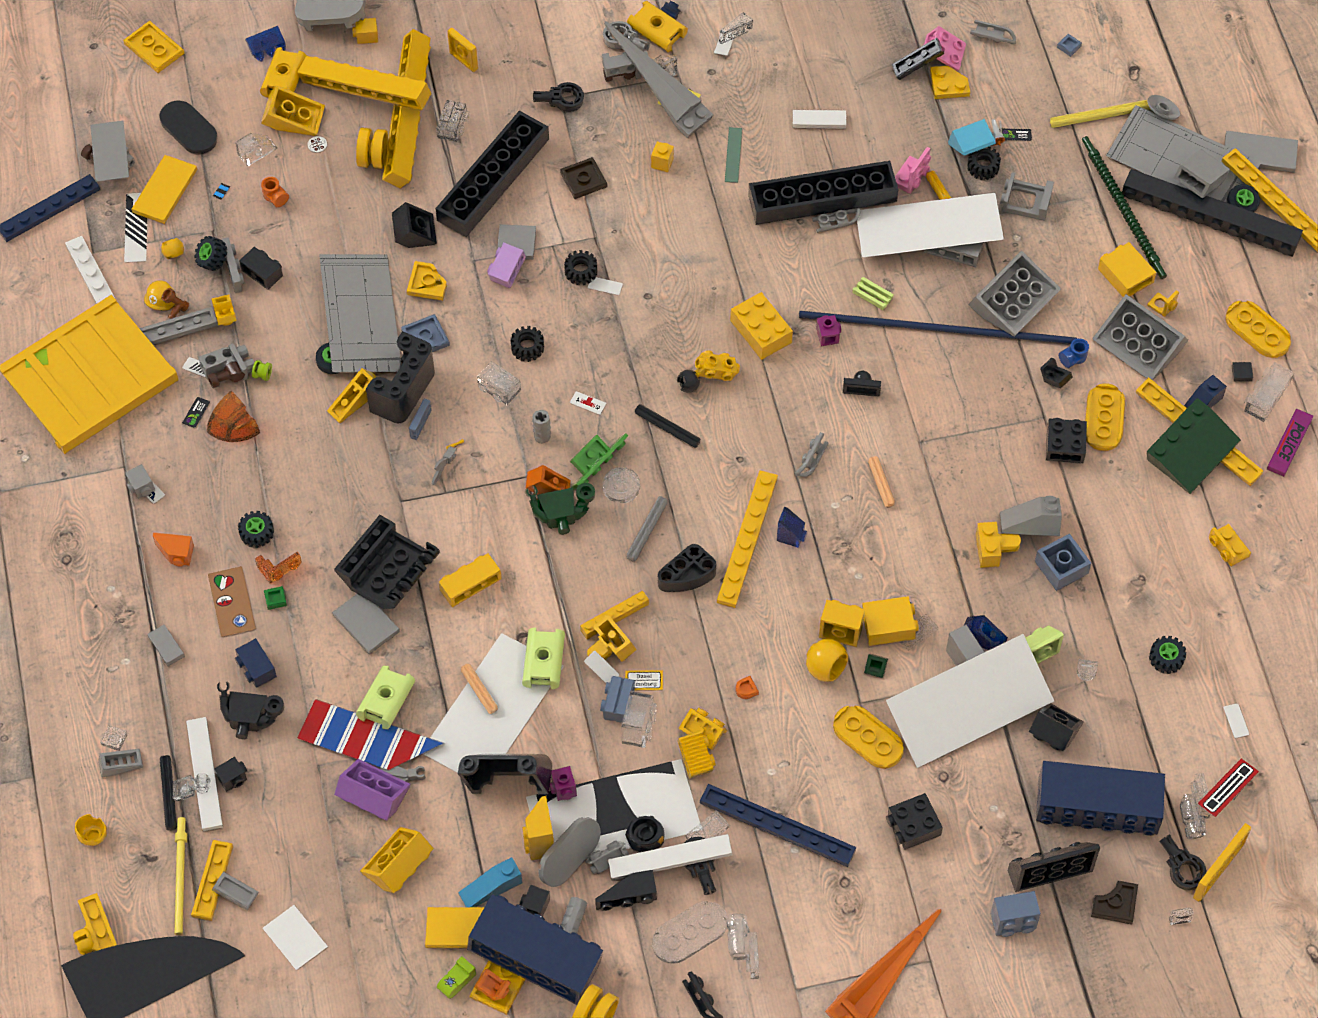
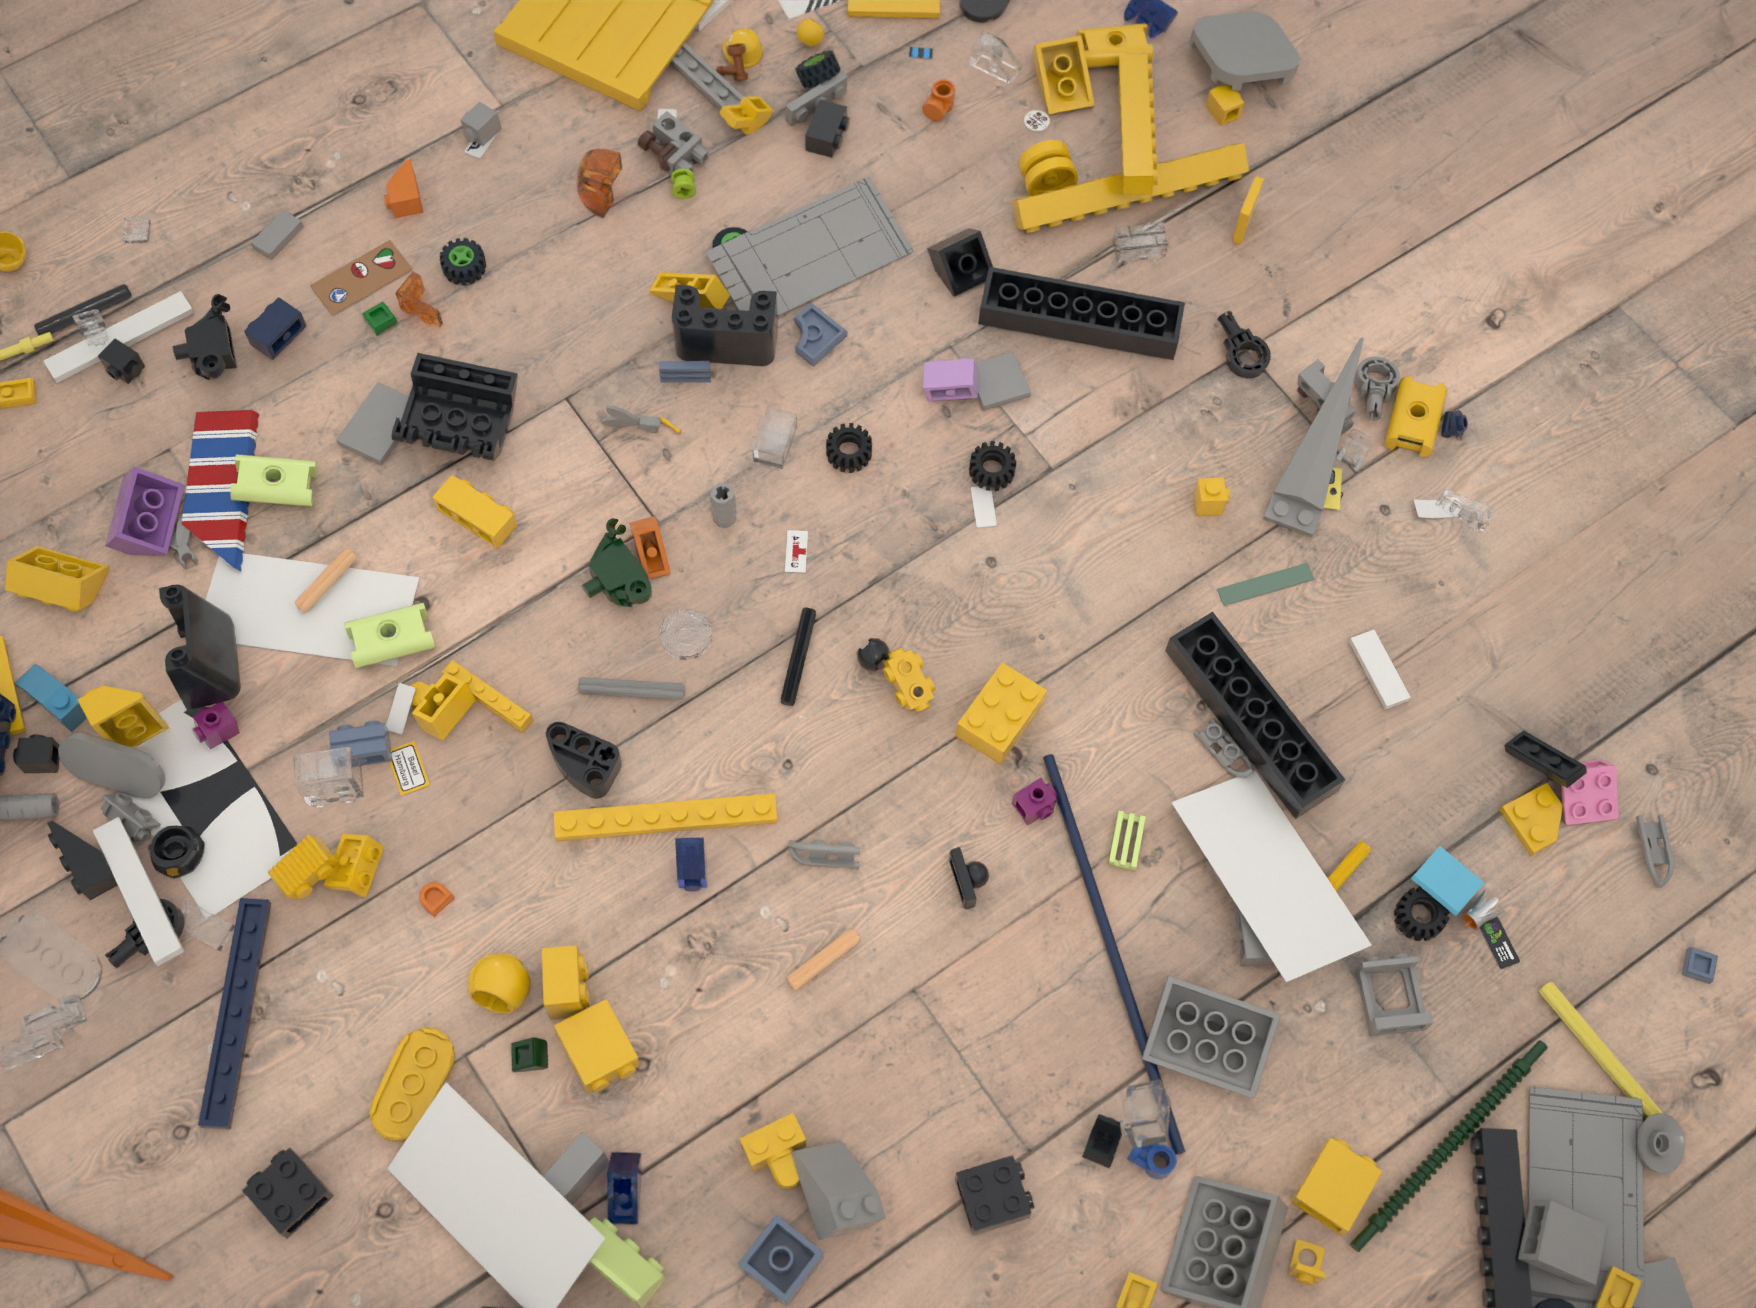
camera: 65 degrees right, 5 degrees up
(120, 768) = (97, 234): light grey slope -> none
(196, 412) = (615, 144): black sticker -> none
(426, 282) = (889, 304): yellow plate -> none
(583, 178) = (1134, 420): dark brown tile -> none
(593, 455) = (709, 582): bright green bracket -> none
(912, 171) = (1352, 821): bright pink bracket -> none
(1051, 342) = (1146, 1114): none -> clear brick
(1104, 417) = (1066, 1240): yellow tile -> none

